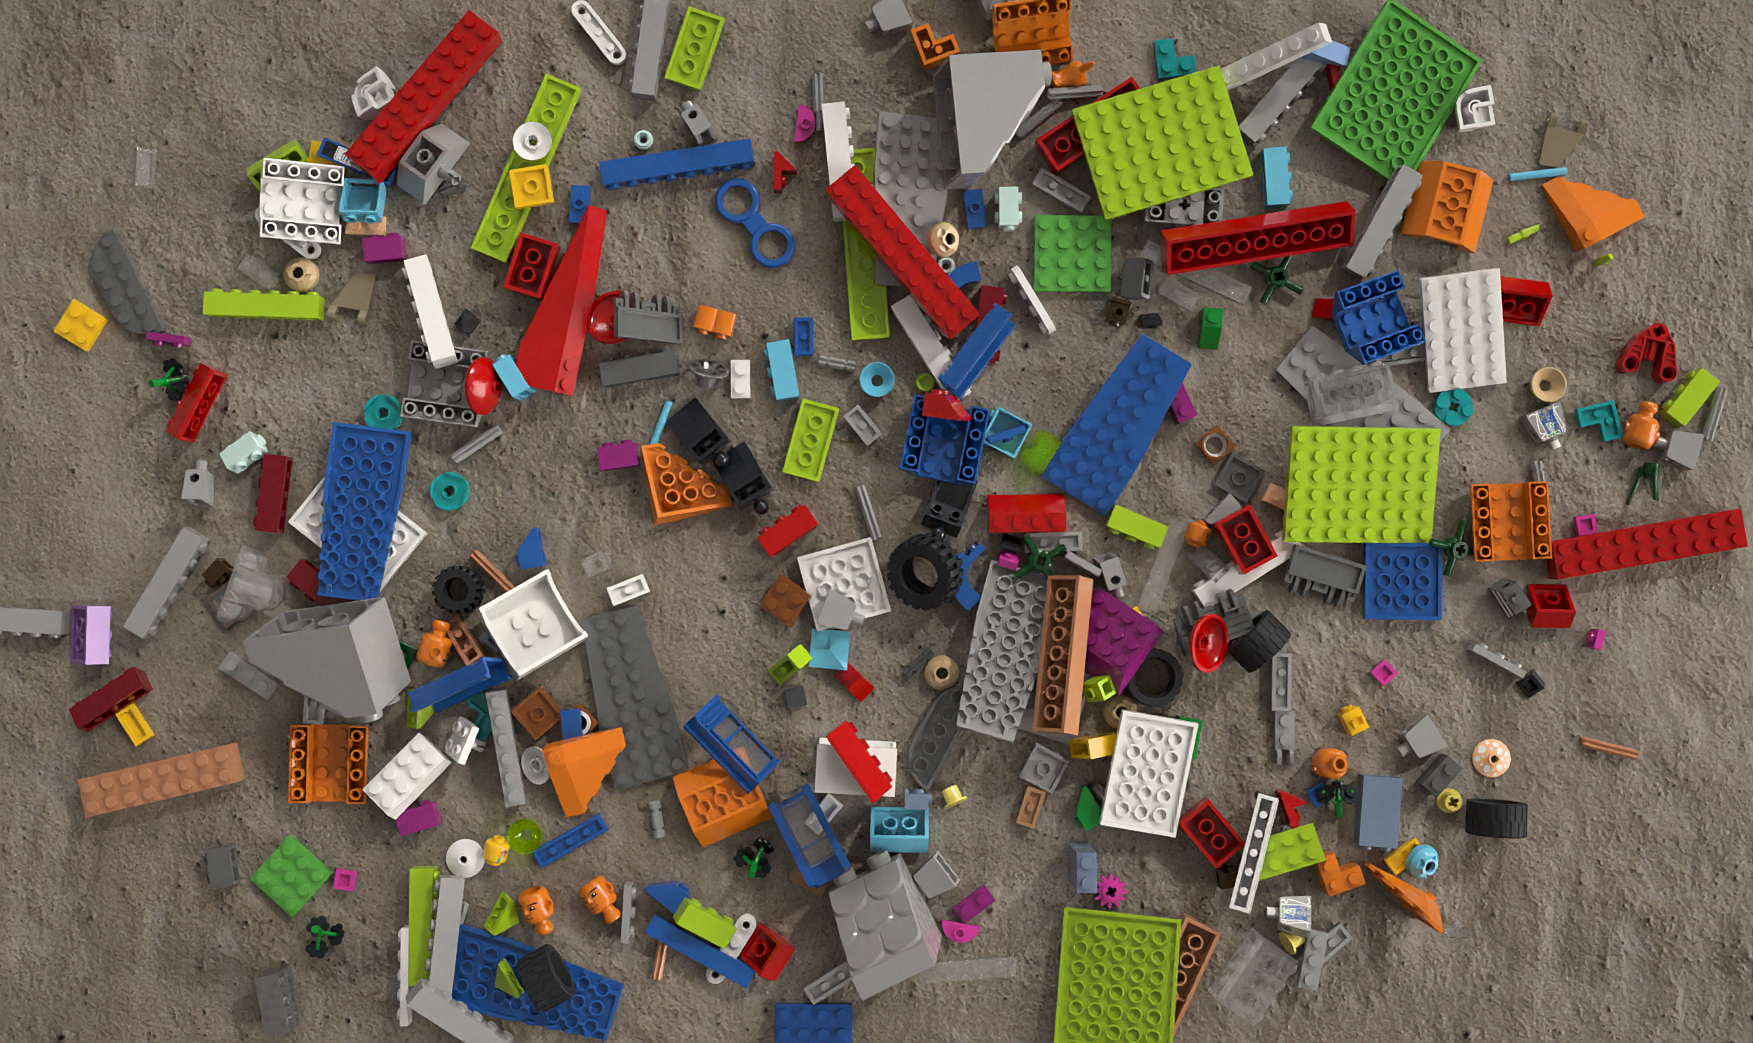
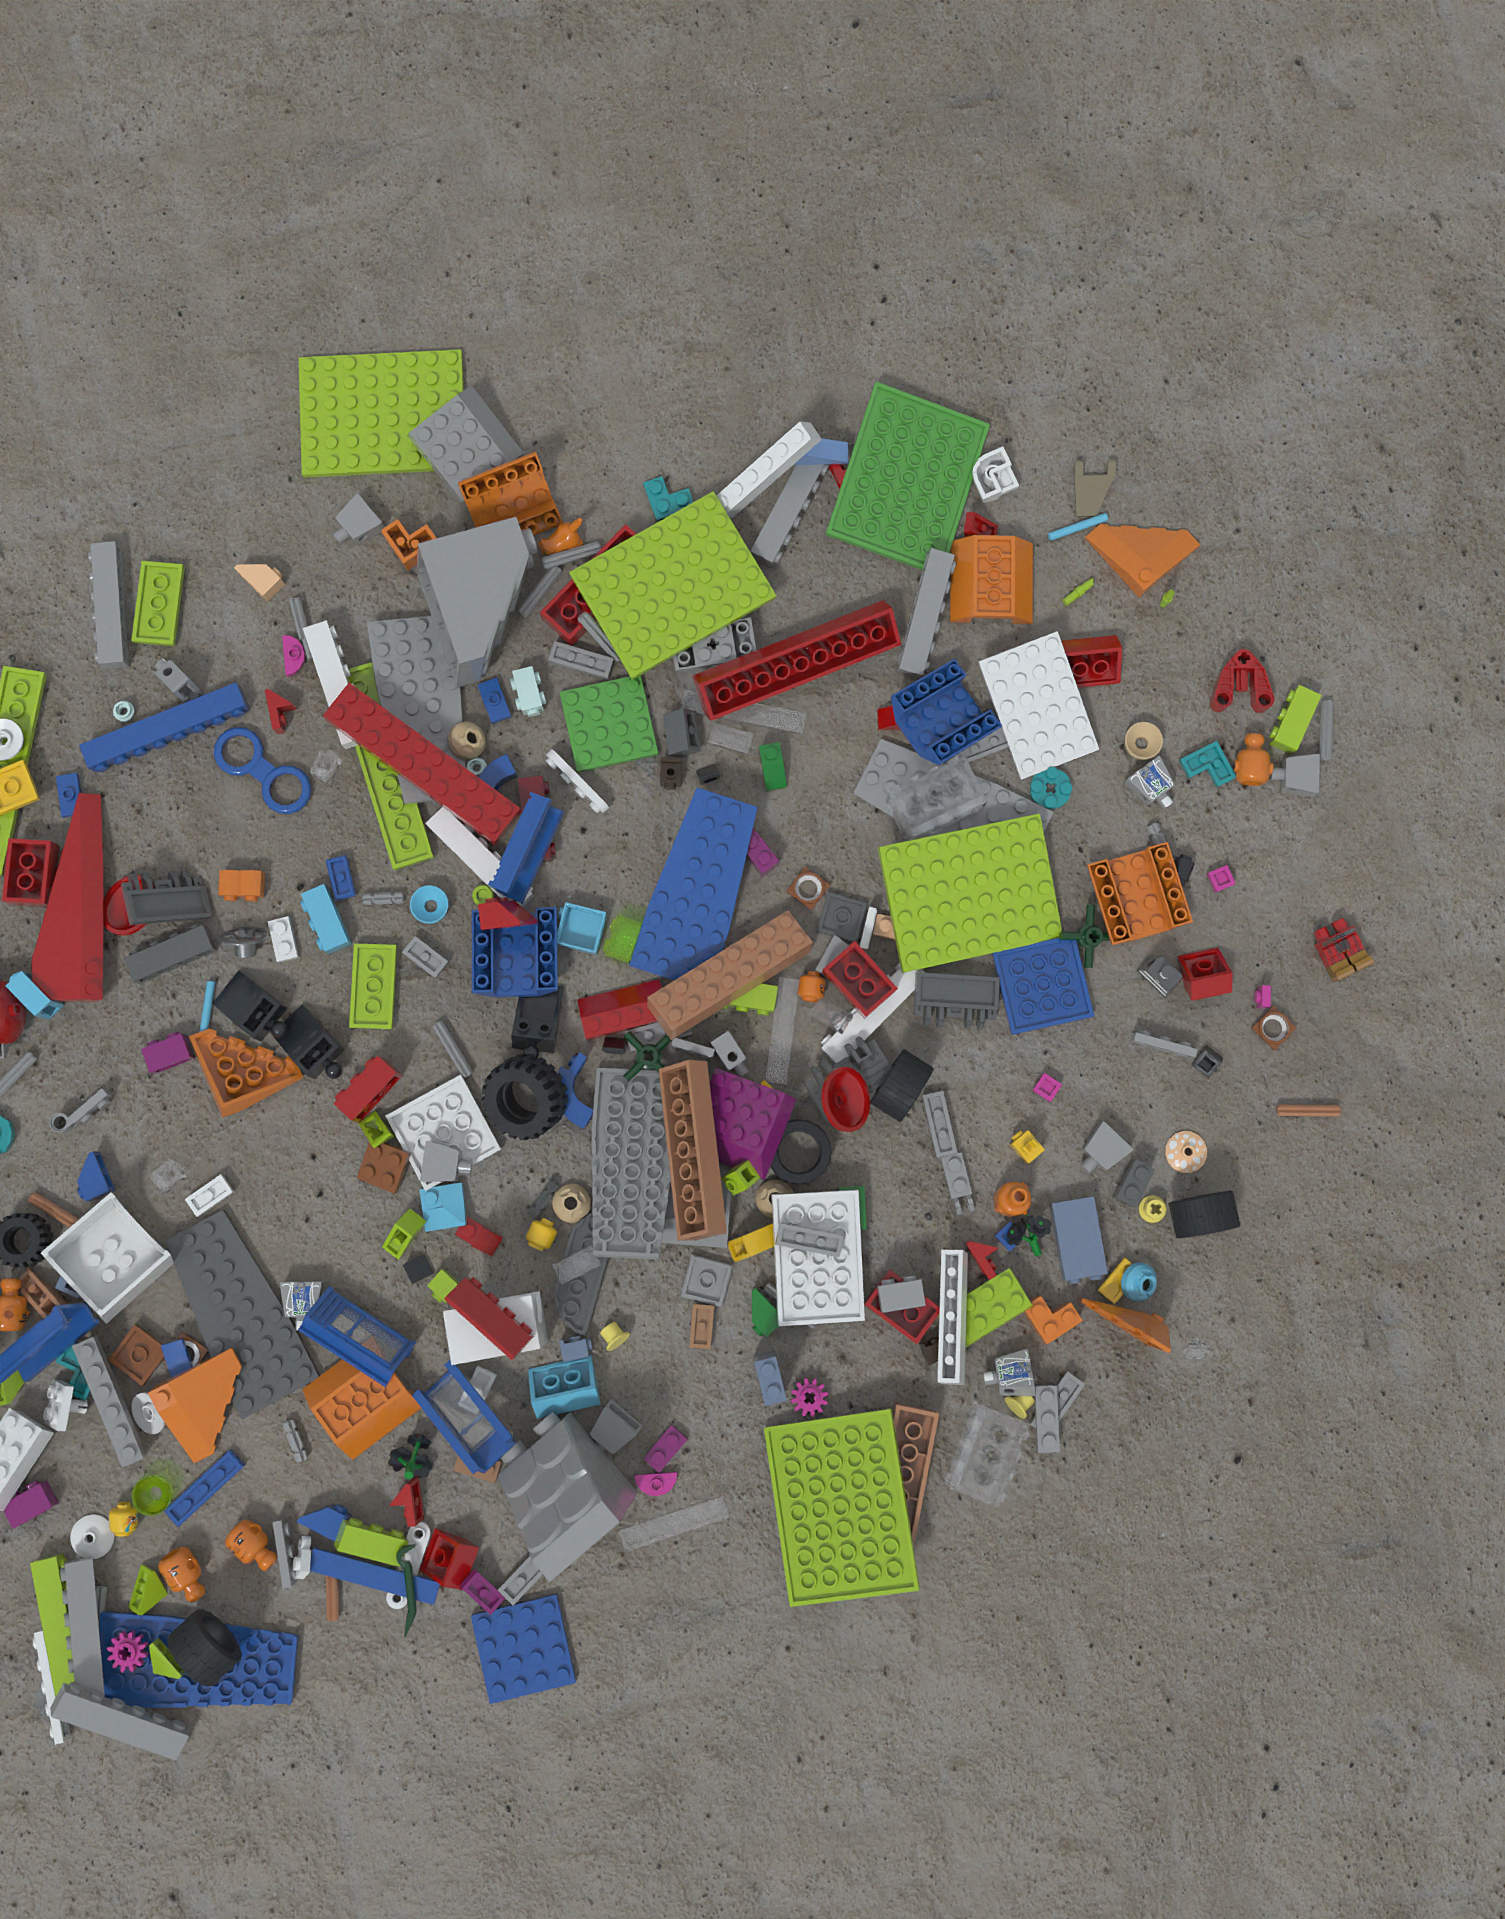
camera: 15 degrees left, 5 degrees down
(470, 963) = (121, 1655): none -> dark pink gear
(533, 492) = (83, 1113): none -> light grey plate
(599, 32) = (52, 610): white plate -> none
(642, 924) = (302, 1562): none -> white plate
(689, 699) = (300, 1297): none -> torso
(730, 966) = (409, 1585): none -> dark green piece
(746, 893) = (412, 1499): none -> red slope
(785, 567) = (376, 1129): none -> lime slope
(790, 987) = (482, 1591): none -> magenta plate
(792, 48) = (261, 578): none -> light nougat slope
(815, 719) = (442, 1285): none -> lime brick
(817, 225) = (318, 768): none -> clear brick
(910, 694) = (541, 1234): none -> yellow head
(935, 728) = (576, 1265): none -> clear plate
(1006, 435) = (582, 930): blue plate -> none
(1008, 559) = (614, 1063): dark pink plate -> none
(1084, 172) = (598, 634): none -> light grey axle
(1130, 507) = (729, 974): none -> nougat brick
(1146, 757) = (809, 1239): none -> light grey plate
(1214, 824) = (901, 1294): none -> light grey brick
(1260, 492) = (868, 927): none -> white tile
(1272, 284) = (823, 695): dark green bar -> none
(1275, 177) = (804, 594): medium azure brick -> none
(1448, 152) = (978, 525): none -> red slope
(1556, 507) = (1184, 868): none -> black brick
(1609, 670) = (1287, 1027): none -> dark orange piece
(1647, 544) = (1289, 883): red brick -> none
(1650, 472) = (1276, 808): dark green plant -> none
(1676, 616) = (1341, 952): none -> hips

